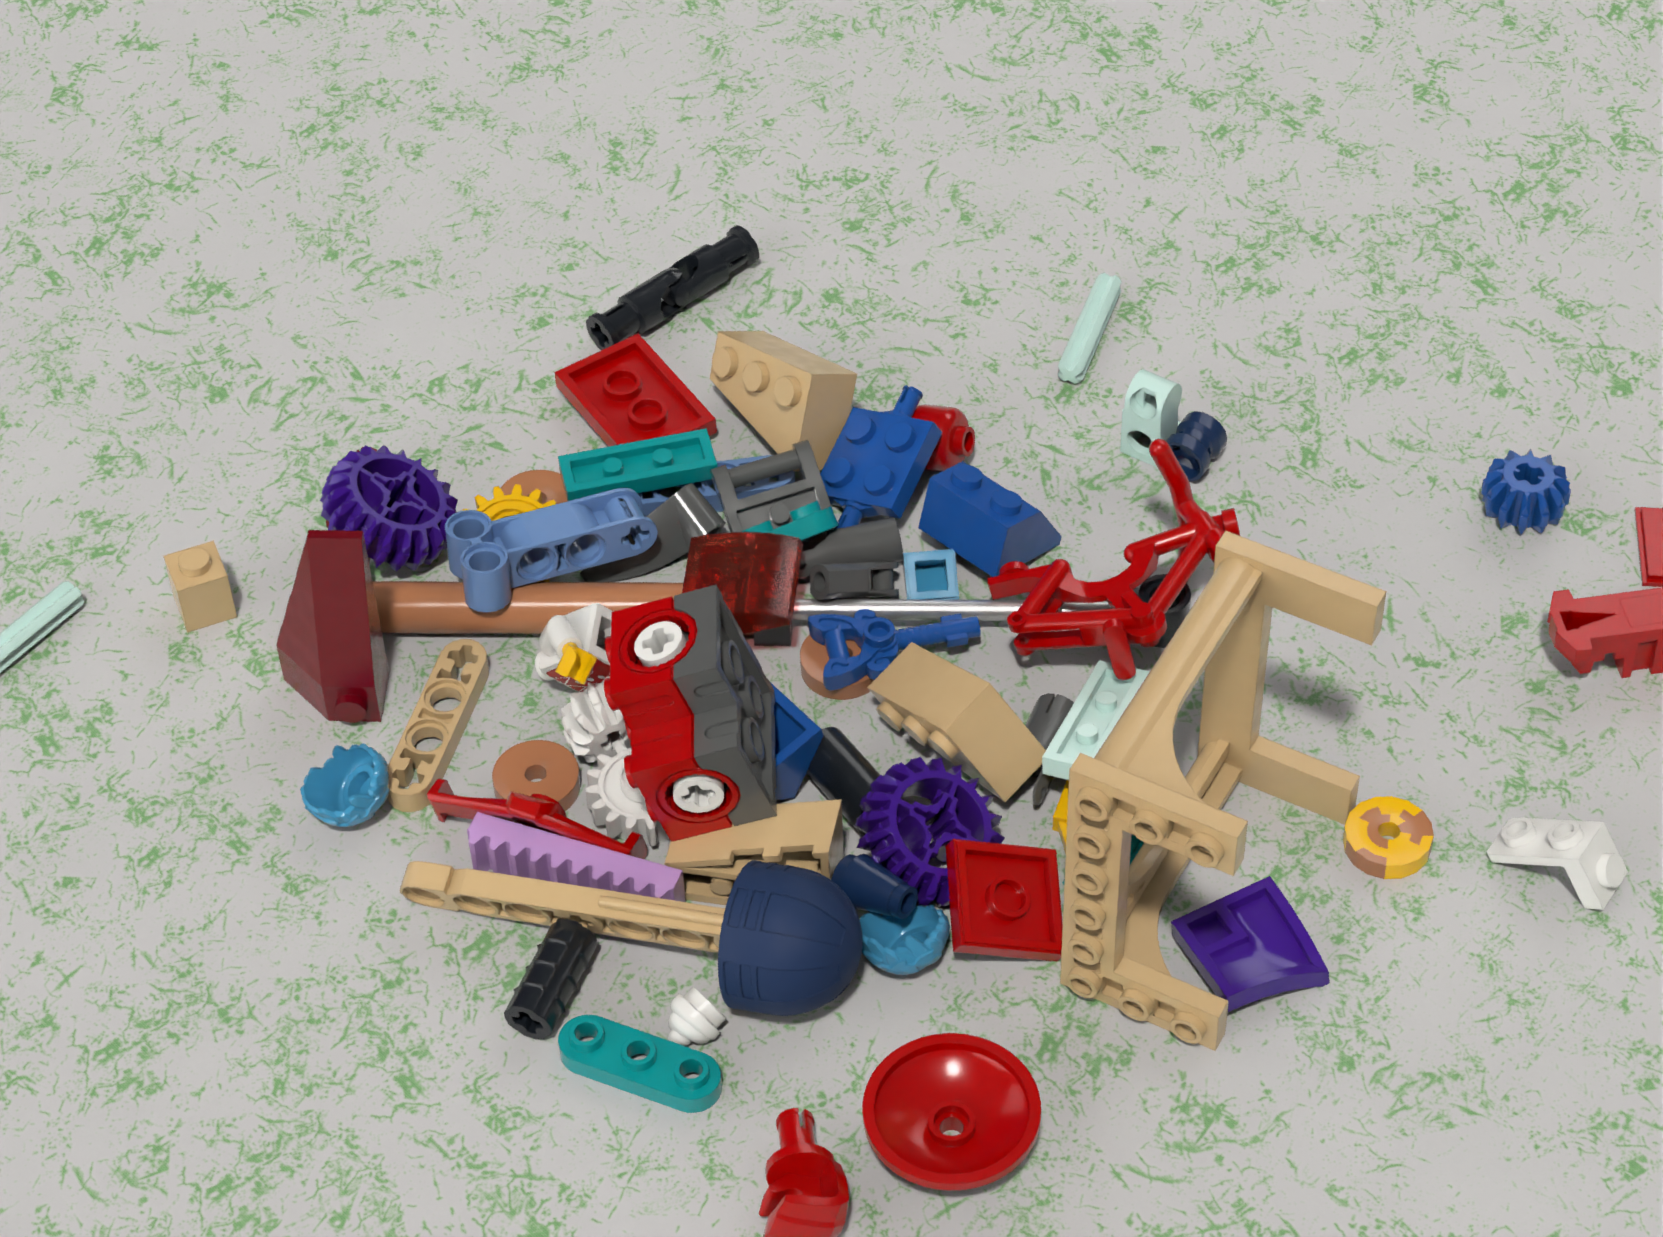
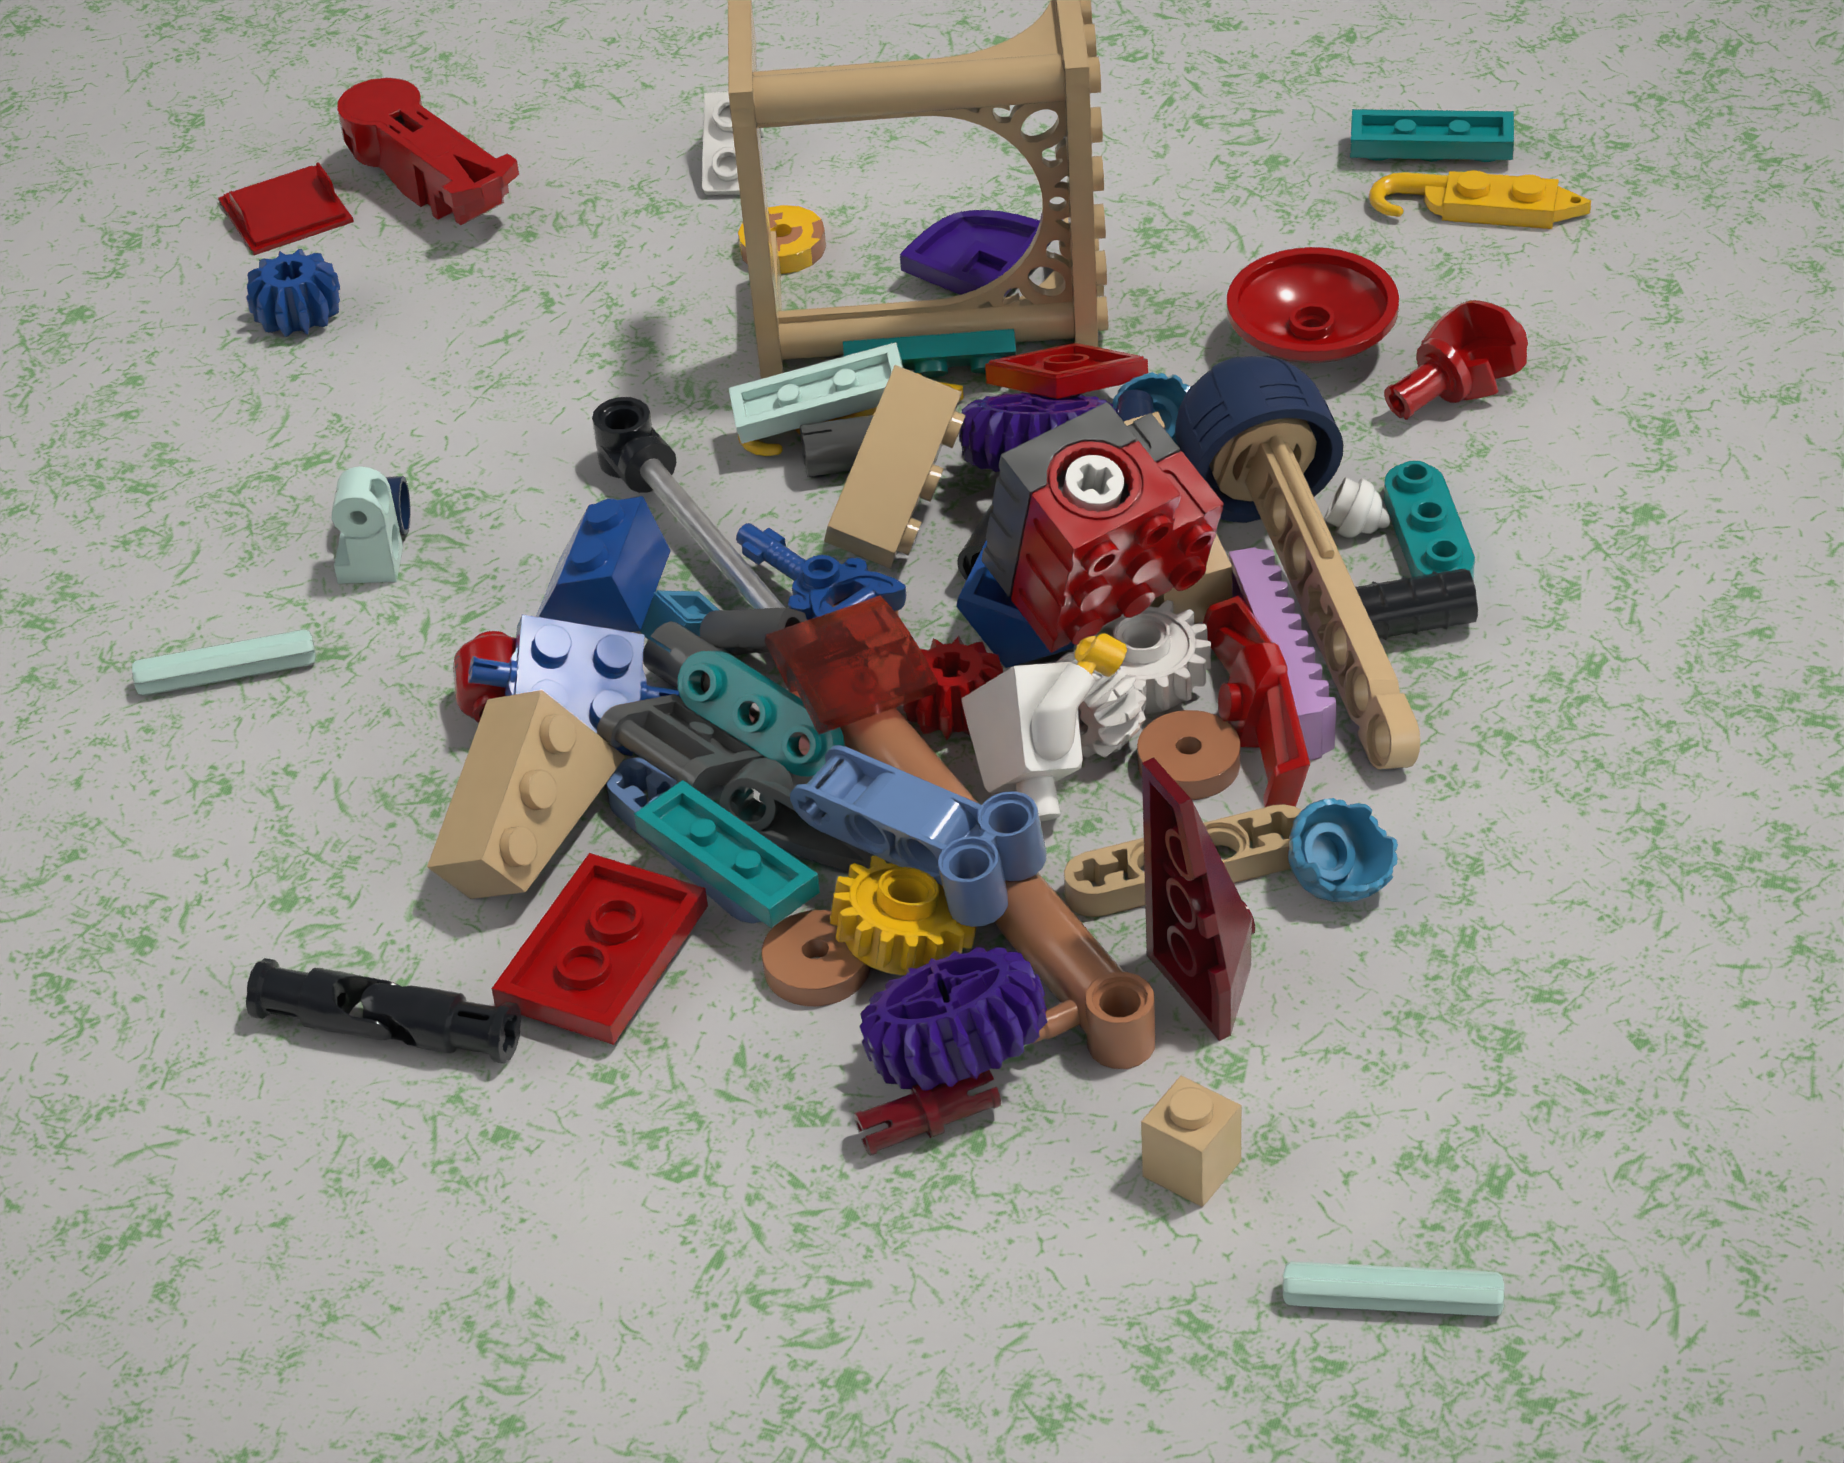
camera: 120 degrees left, 5 degrees down
(1131, 618) = (693, 372): red piece -> none

